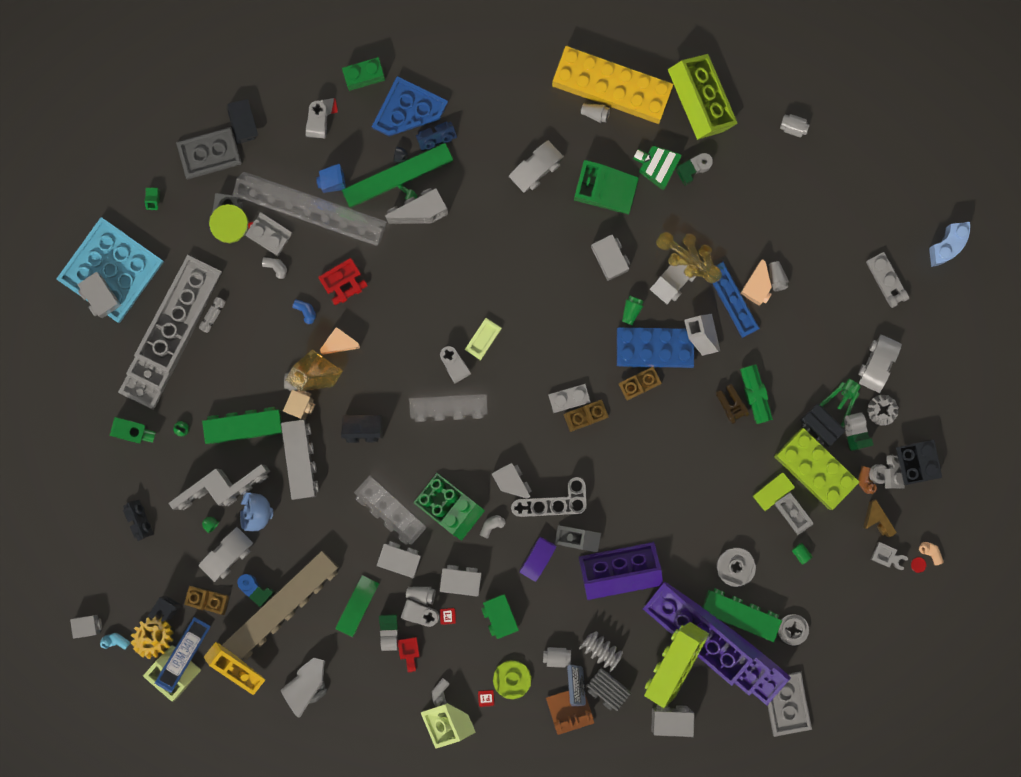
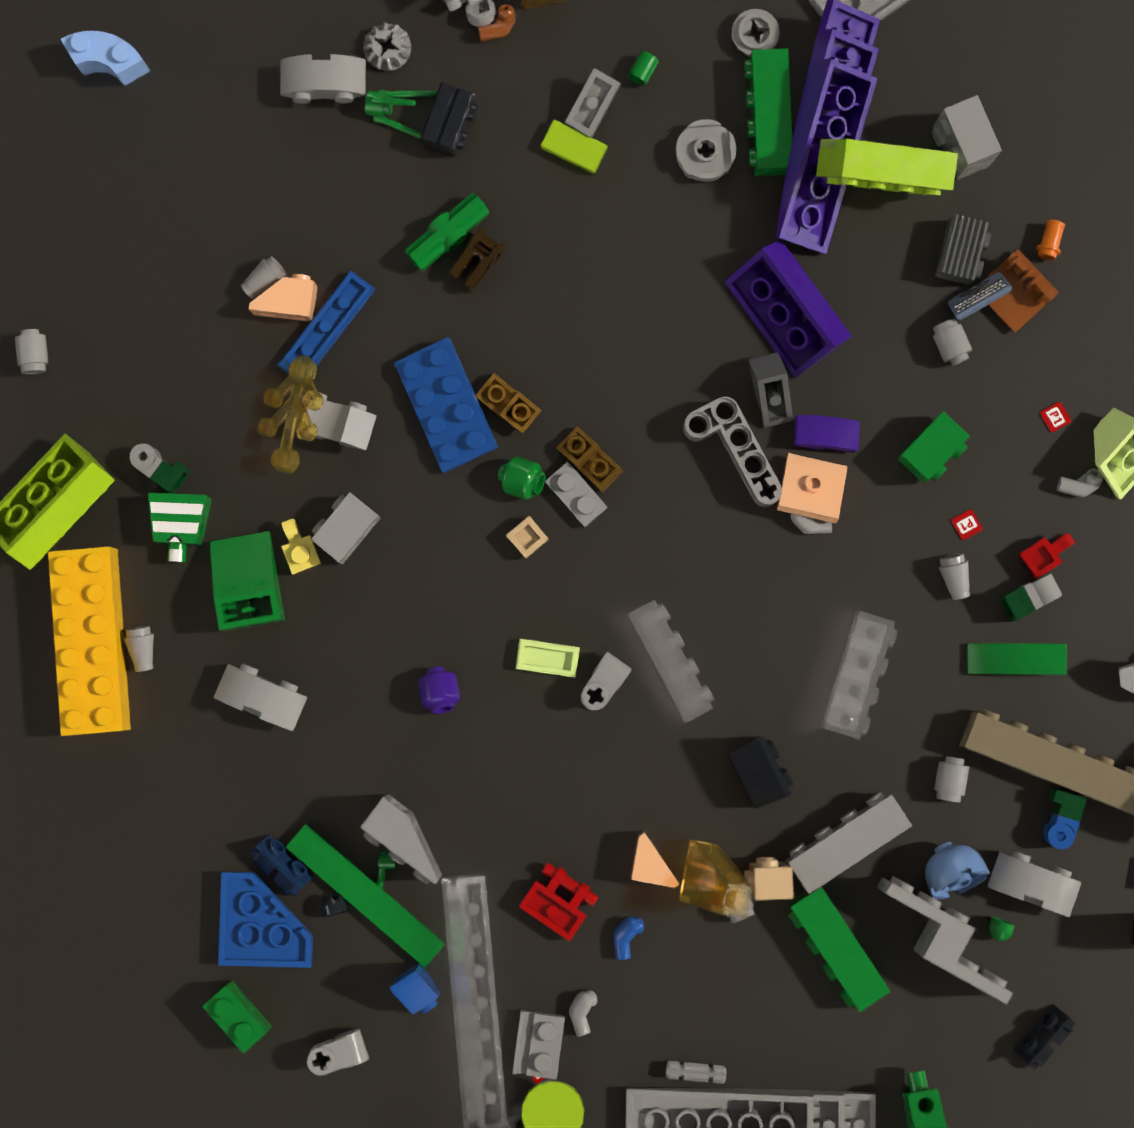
camera: 115 degrees left, 0 degrees up
(183, 425) = (876, 1037): green hinge -> none
(206, 600) = (1110, 881): pearl gold slope -> none
(306, 536) = (951, 779): none -> light grey brick
(331, 105) = (305, 1043): sticker -> none
(399, 560) = (922, 629): light grey brick -> none
(416, 612) = (984, 567): light grey piece -> none
(449, 506) = (812, 594): green slope -> none
(460, 581) = (911, 527): light grey brick -> none
(493, 268) = (439, 690): none -> dark purple head
(509, 535) = (812, 488): none -> light nougat plate
(510, 482) = (736, 523): light grey slope -> none
(512, 679) = (1012, 392): lime tile -> none
(557, 359) = (527, 537): none -> tan plate
(588, 743) = (1051, 239): none -> orange pin
(592, 371) = (521, 478): none -> green head
(601, 650) = (912, 282): light grey piece -> none
(608, 226) = (300, 551): none -> light yellow plate
(632, 309) = (406, 463): green cone -> none
(703, 334) = (395, 345): light grey slope -> none
(816, 469) = (514, 99): lime brick -> none
(857, 431) = (435, 66): leg -> none
(887, 279) = (197, 122): light grey plate -> none

